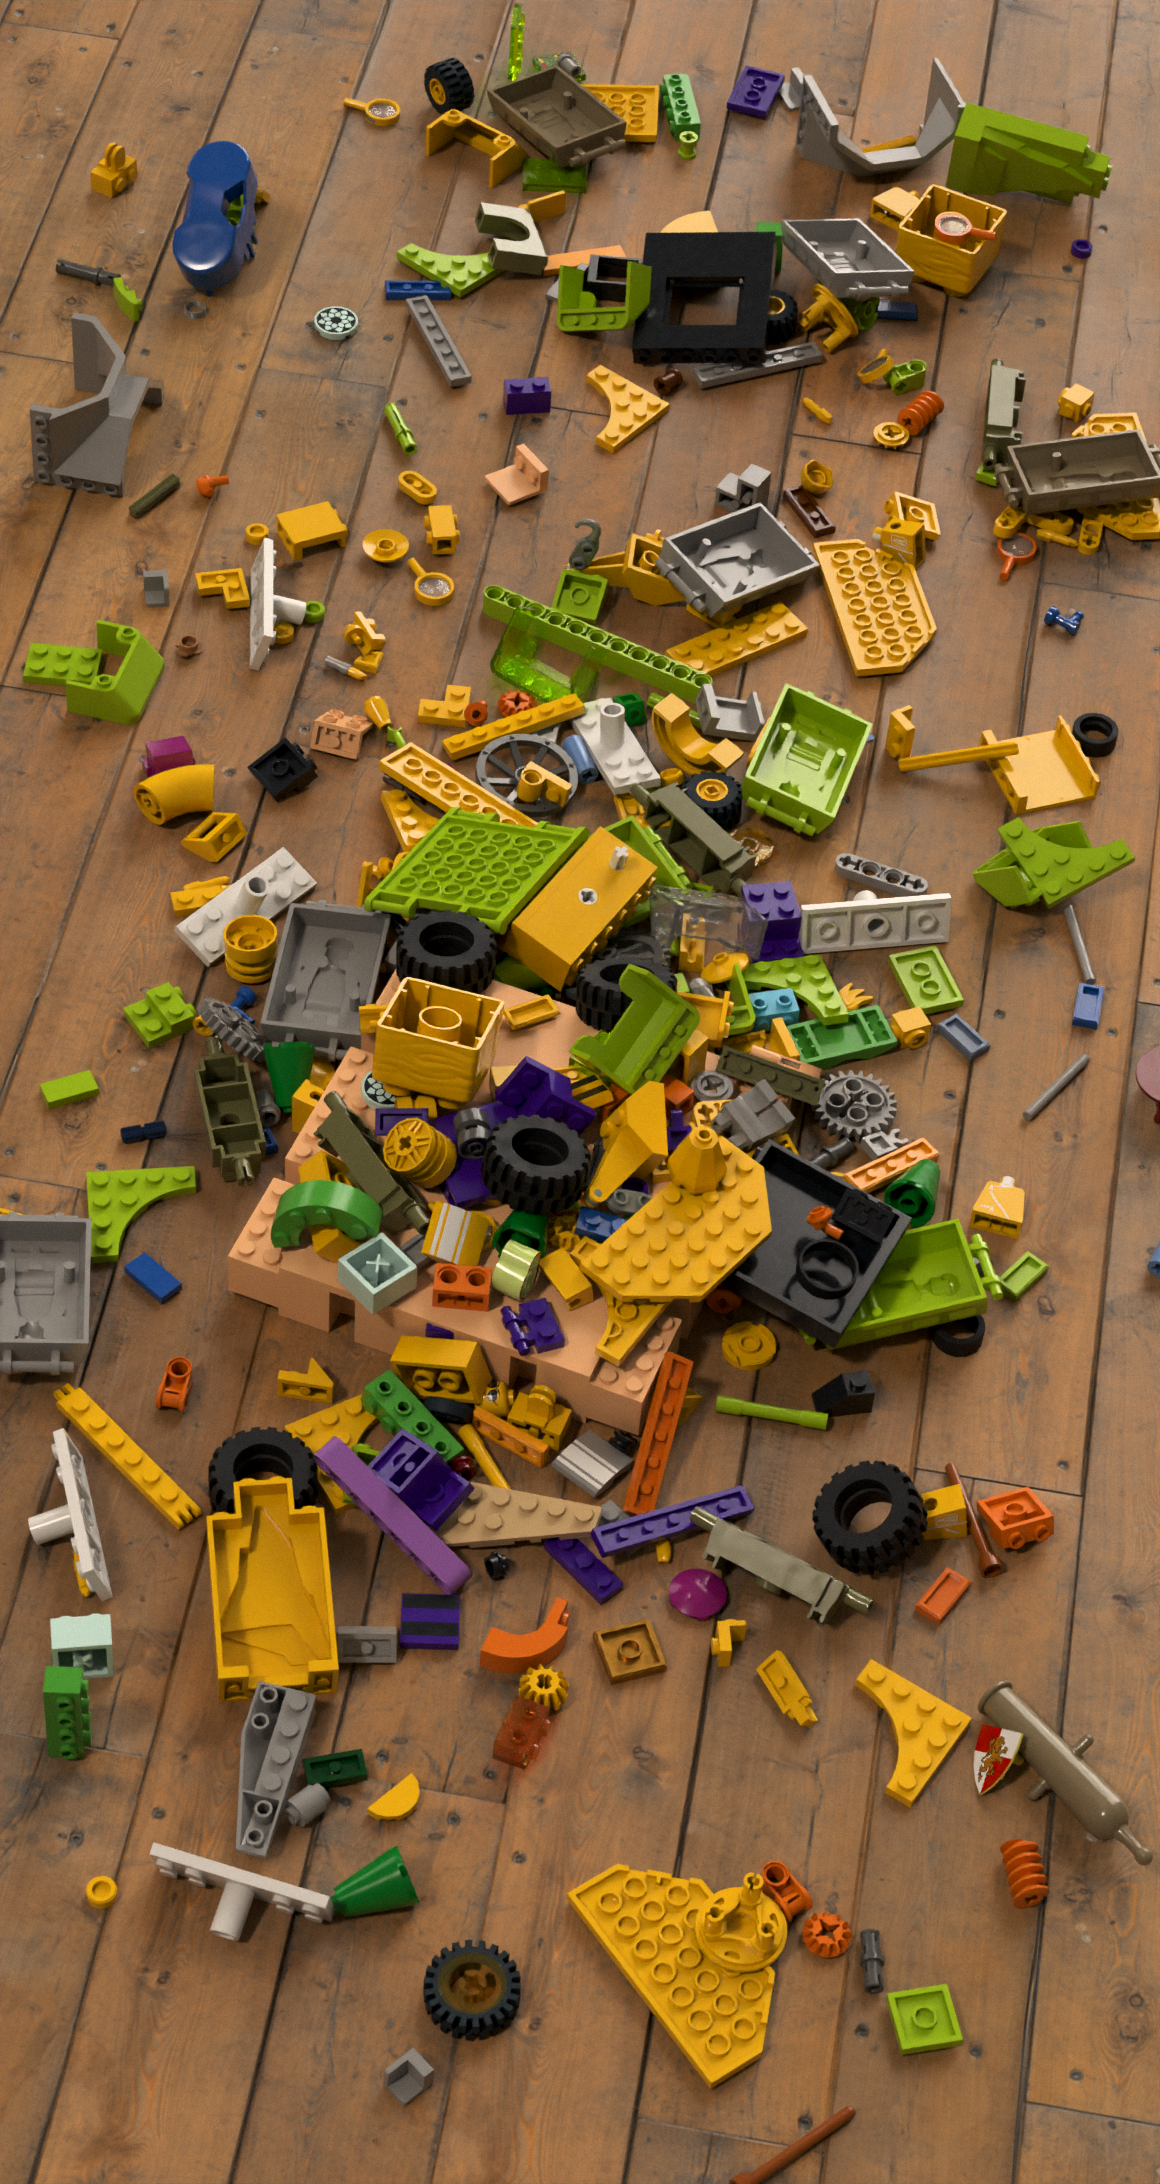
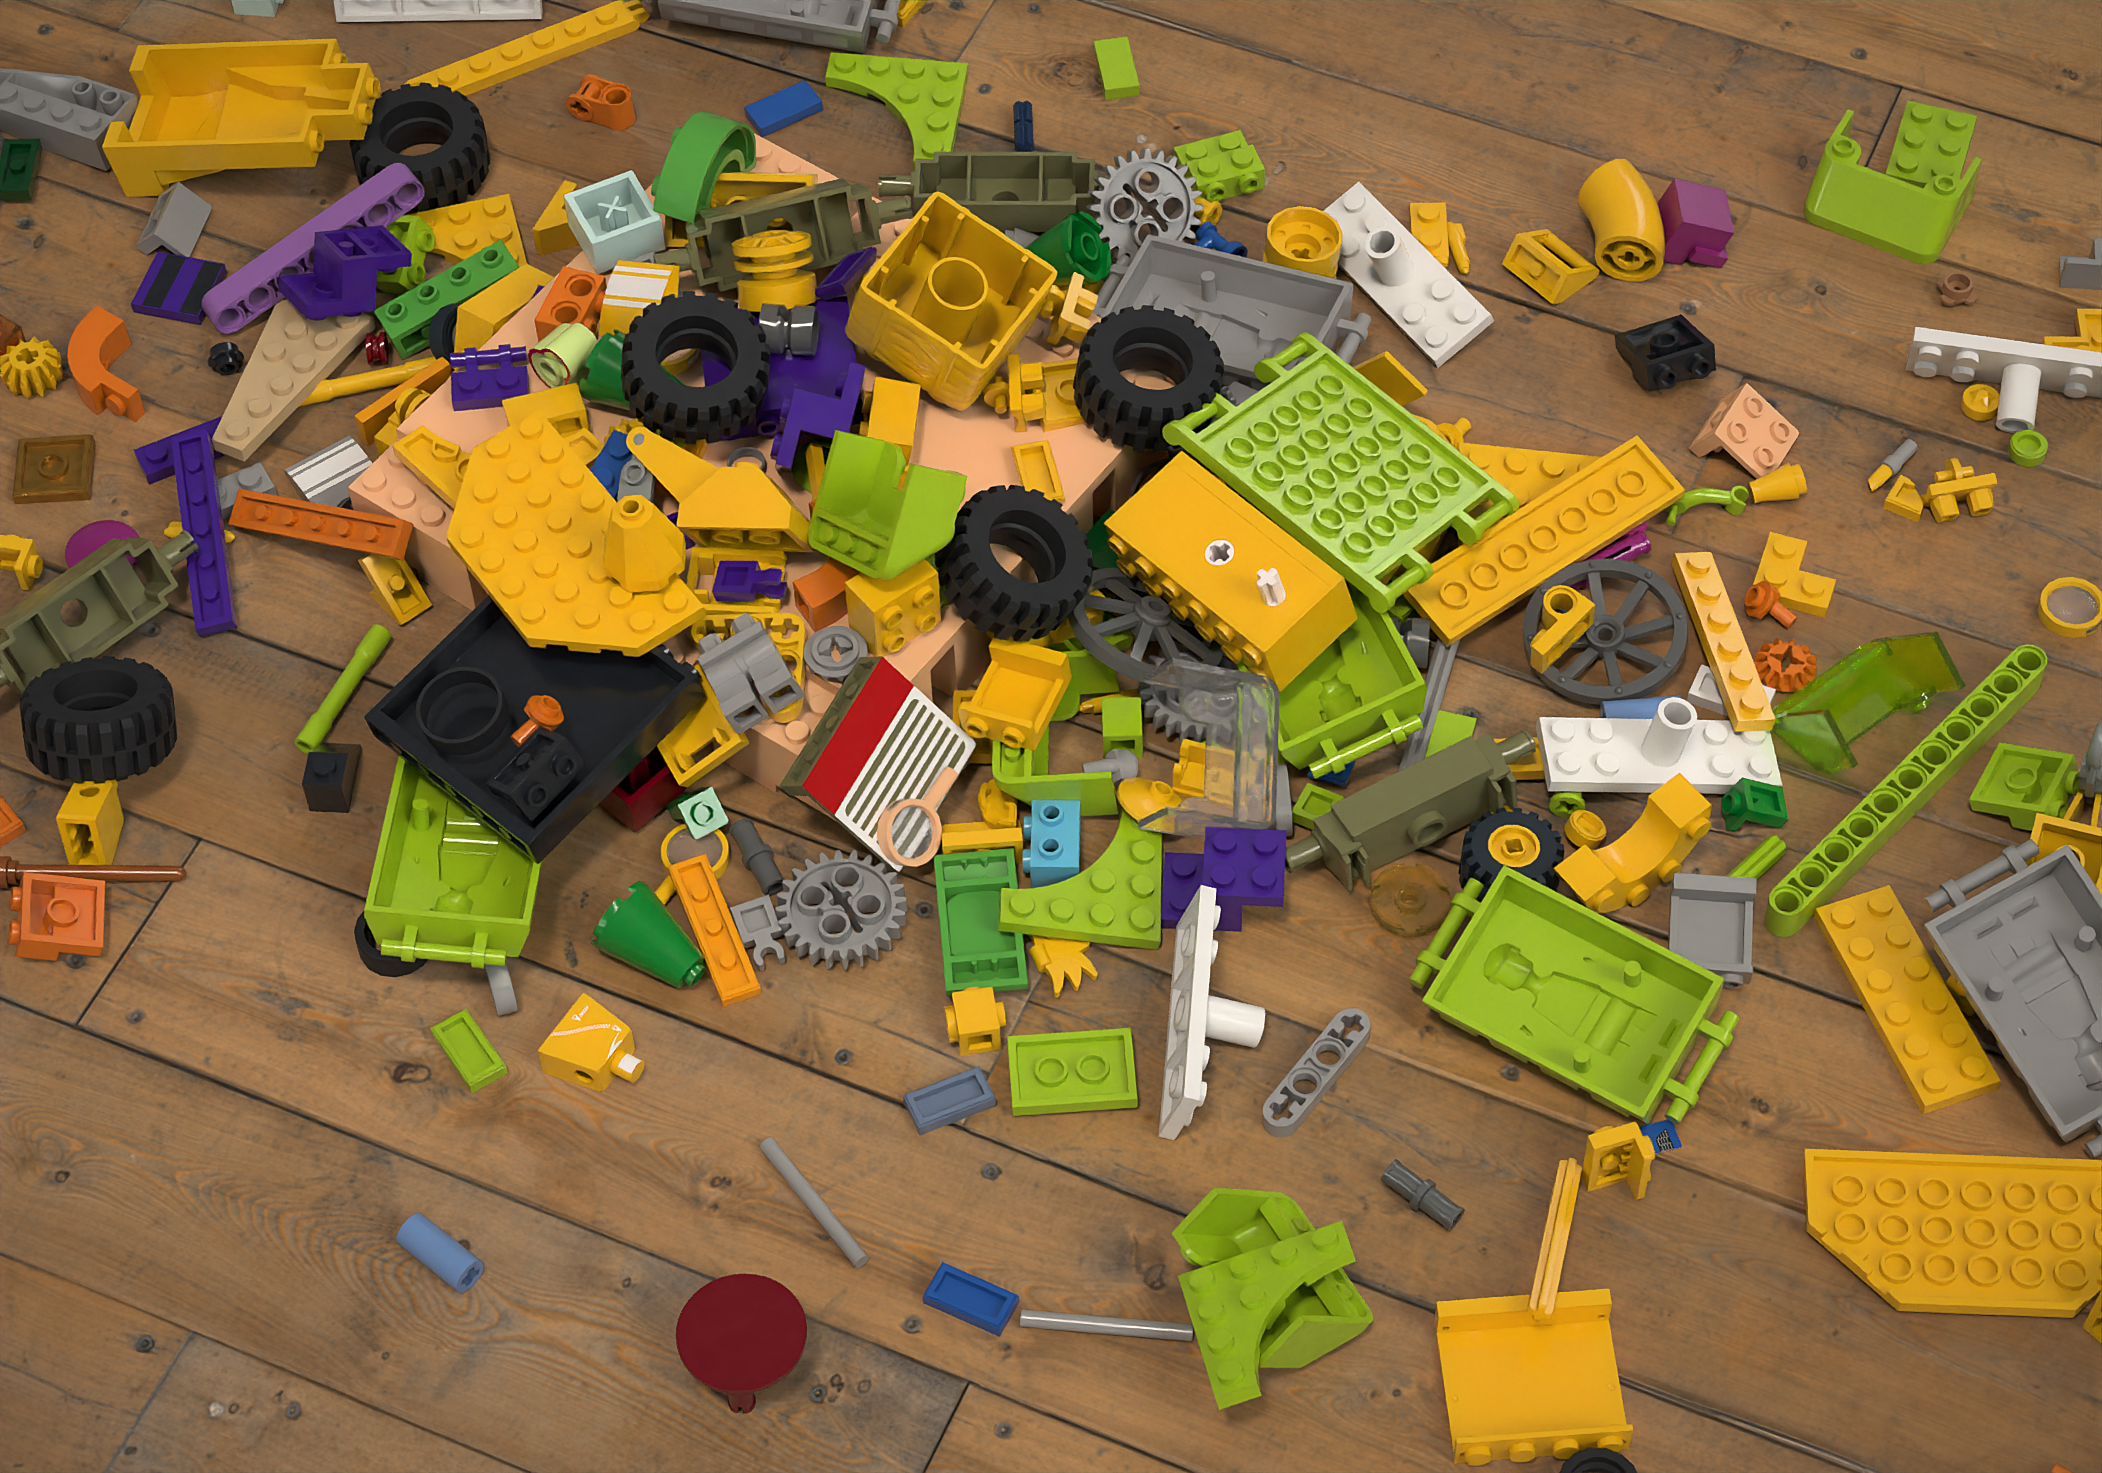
camera: 110 degrees right, 5 degrees up
(945, 821) = (1422, 1195): none -> dark grey pin

